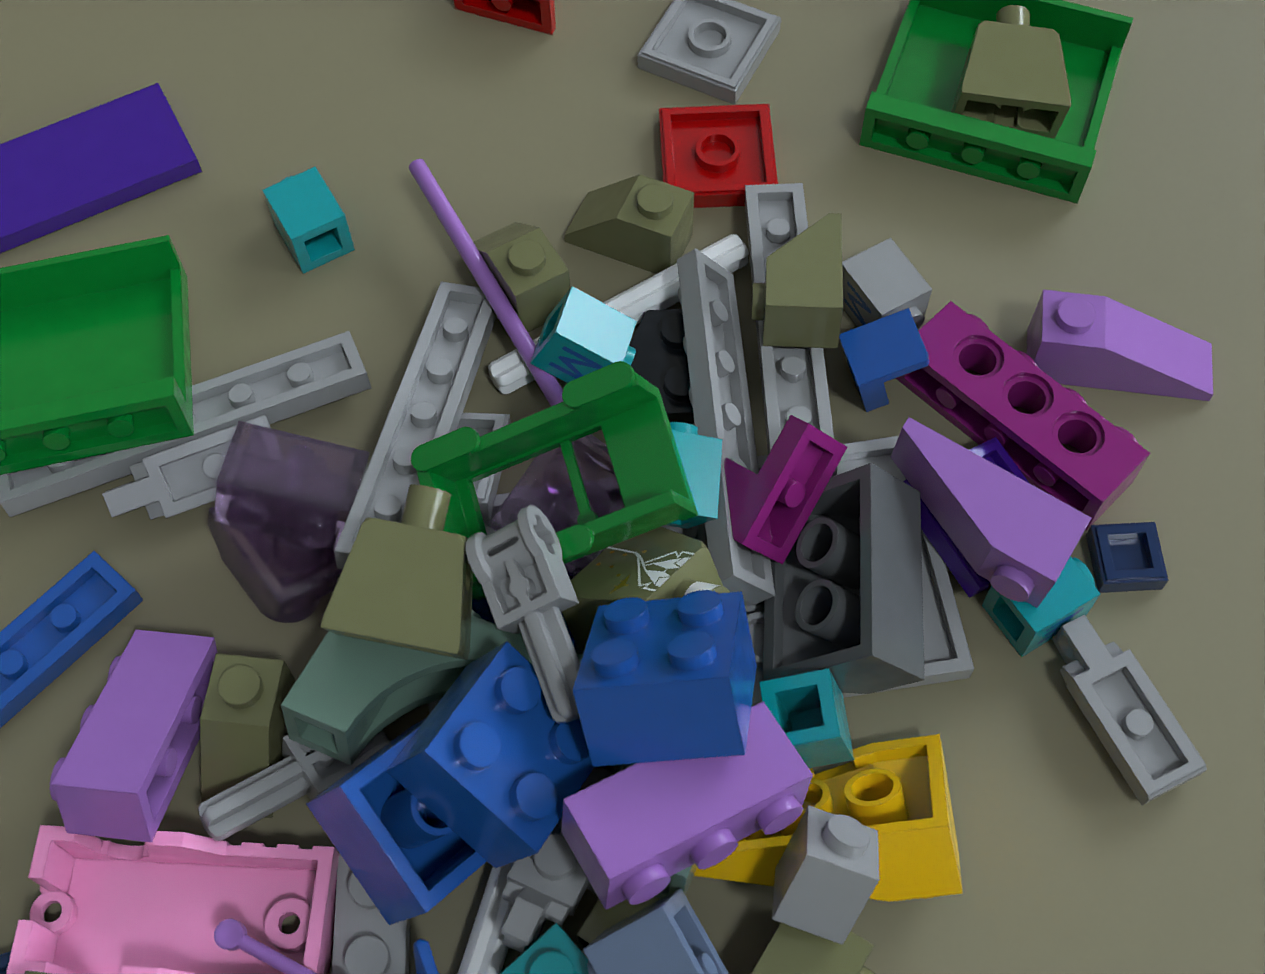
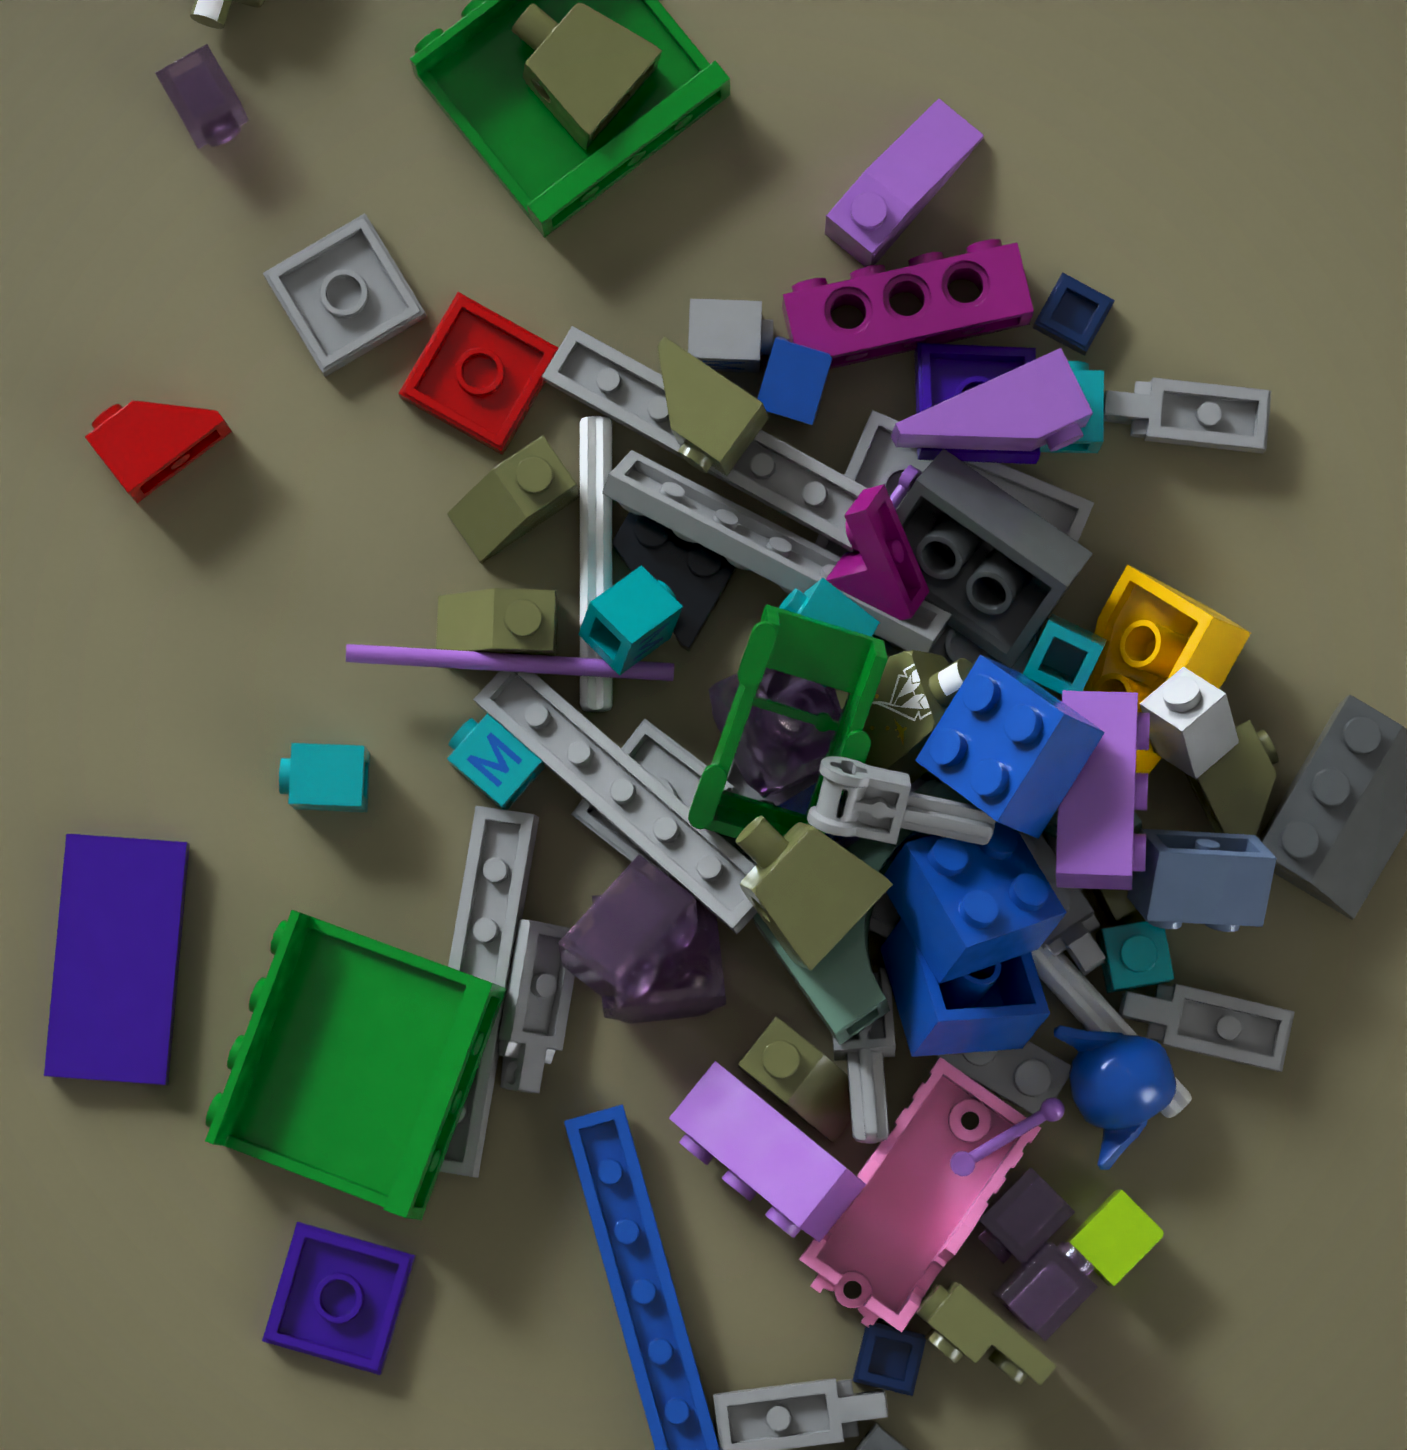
camera: 55 degrees left, 20 degrees up
(392, 323) = (494, 760): none -> teal brick

